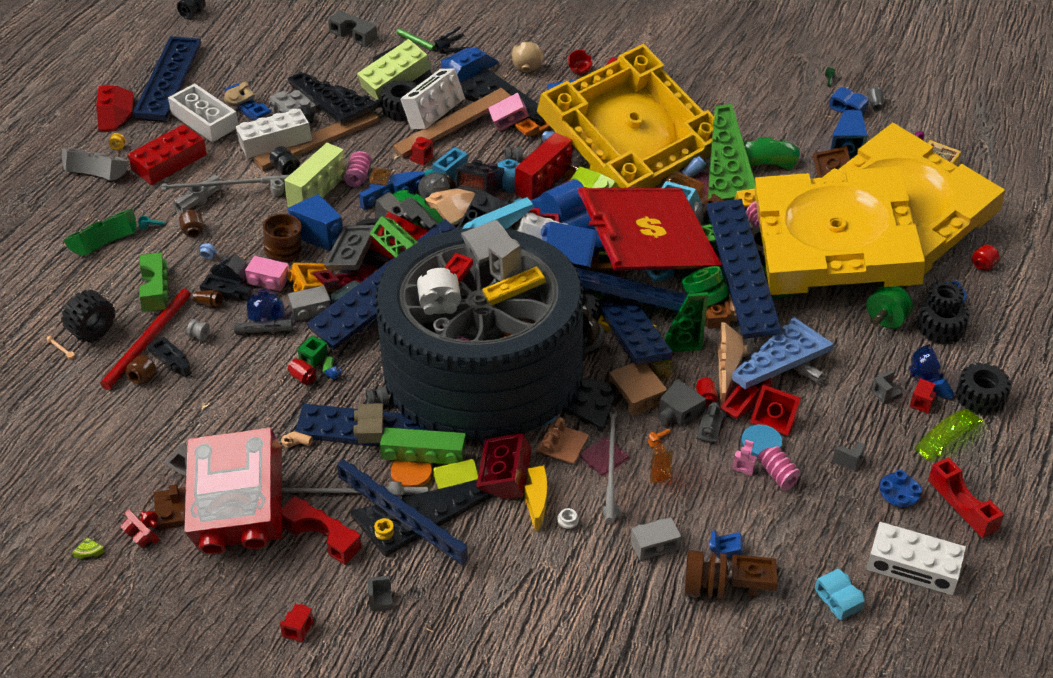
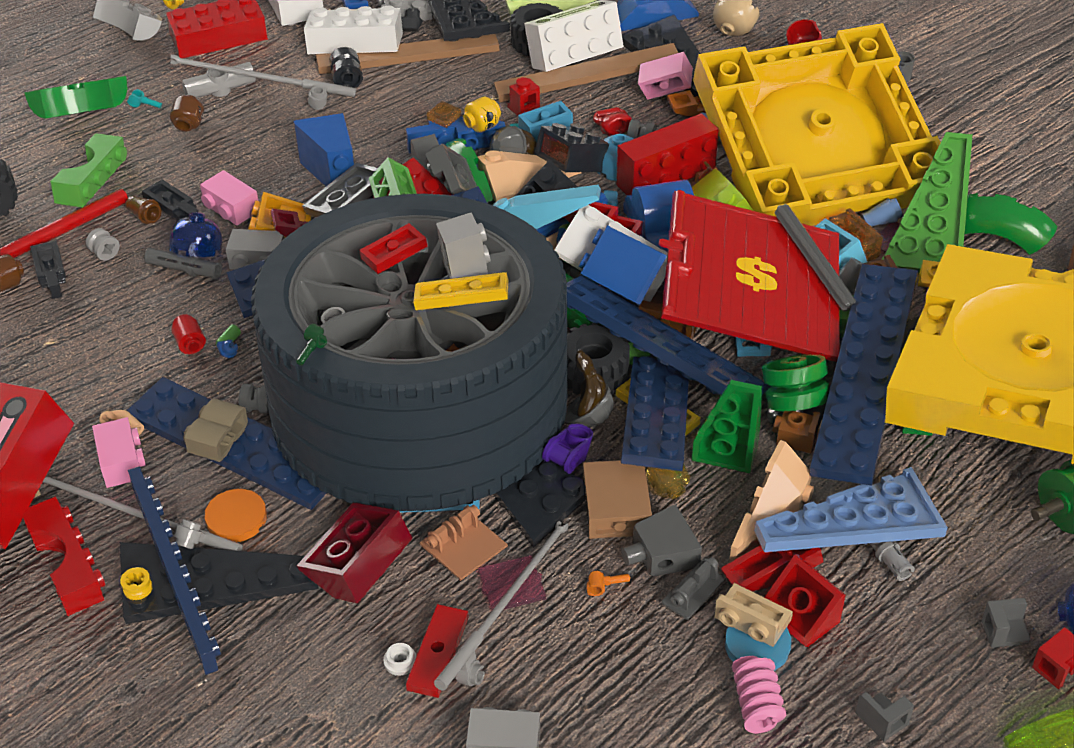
camera: 25 degrees right, 0 degrees up
(207, 251) = (183, 151): light blue plate -> none
(230, 267) = (188, 178): black slope -> none
(282, 237) = (275, 157): reddish brown wheel -> none
(312, 457) = (117, 450): none -> bright pink brick
(313, 351) = (217, 312): green brick -> none
(316, 175) = (368, 93): yellowish green brick -> none
(357, 169) = (426, 97): bright pink piece -> none
(380, 593) = (72, 674): dark grey panel -> none
(408, 170) = (481, 114): none -> yellow head
(422, 446) = (265, 484): bright green brick -> none
(439, 291) = (343, 268): white brick -> none
(450, 337) = (315, 338): none -> dark green hand
(455, 473) = (286, 537): neon yellow slope -> none
(482, 237) = (481, 207): light grey slope -> none
(488, 151) = (612, 120): none -> red piece
(536, 495) = (375, 610): yellow slope -> none
(587, 506) = (437, 649): none -> red tile
(594, 365) = (569, 447): none -> dark purple piece
(660, 464) = (572, 624): clear orange hinge -> none
(678, 207) = (815, 257): none -> dark grey axle
(707, 389) = (715, 537): red brick -> none
(743, 460) = (709, 663): bright pink plate -> none
(754, 426) = (752, 614): none -> tan bracket

